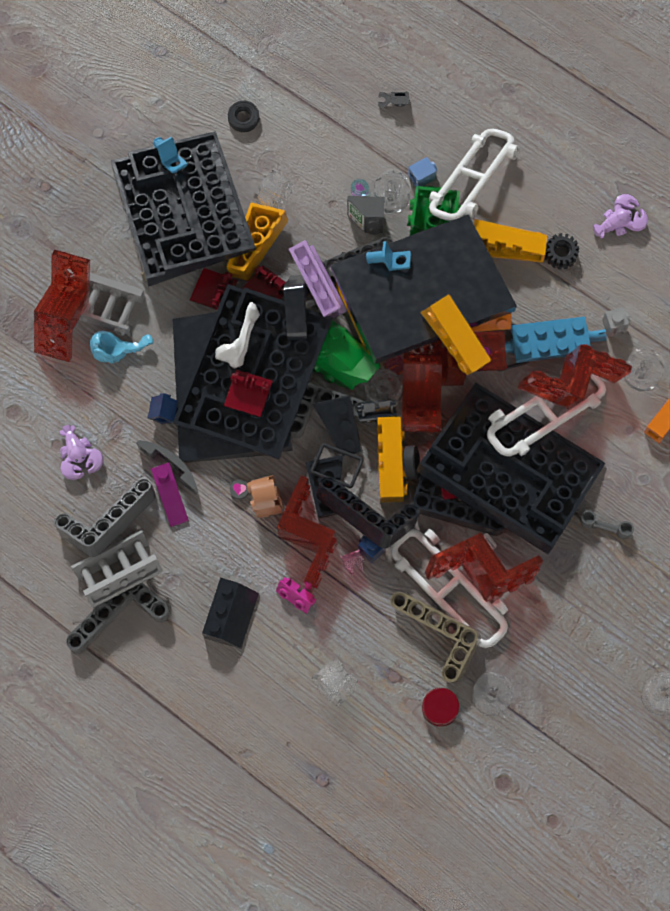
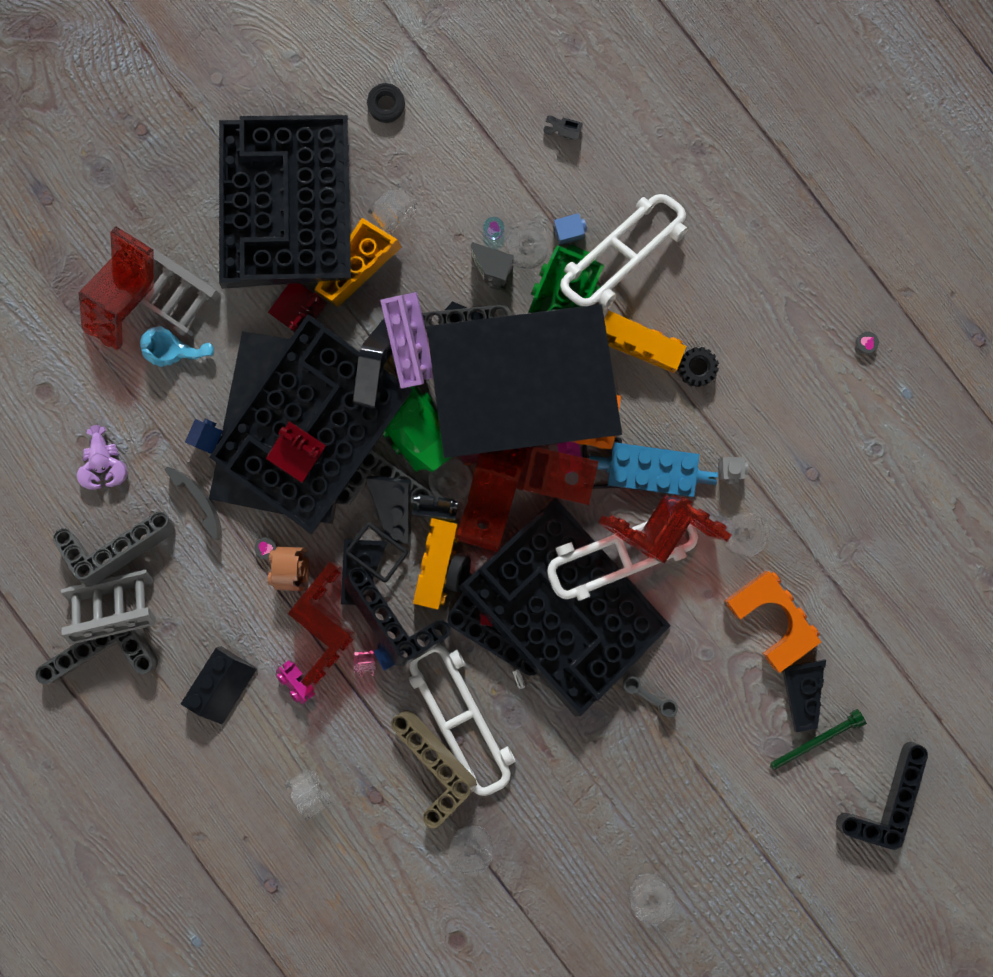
camera: 15 degrees right, 15 degrees up
(168, 154) = (283, 133): dark azure bracket -> none
(169, 494) = (188, 534): magenta slope -> none
(235, 352) = (293, 401): white hair -> none
(266, 282) = (354, 320): dark red hinge -> none
(389, 258) = (494, 337): dark azure bracket -> none
(440, 707) = (413, 846): dark red head -> none
(456, 334) = (541, 456): light orange wedge -> none
(483, 567) = (501, 717): clear red bracket -> none
(622, 217) = (778, 345): lavender animal -> none

